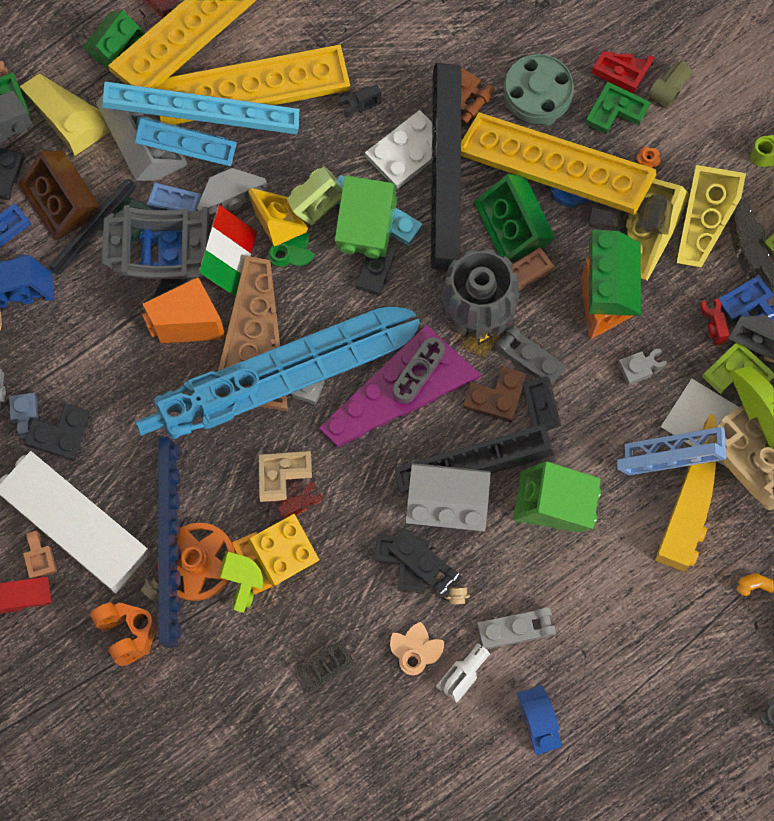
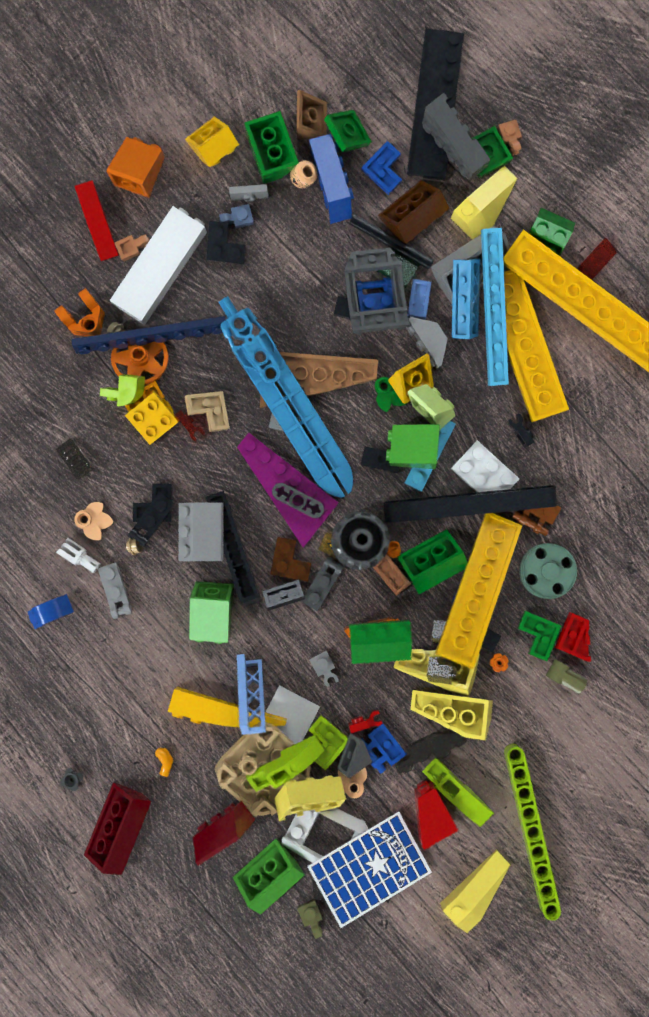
camera: 85 degrees right, 15 degrees up
(183, 315) = (323, 320): orange slope -> none
(226, 250) = (377, 344): sticker -> none

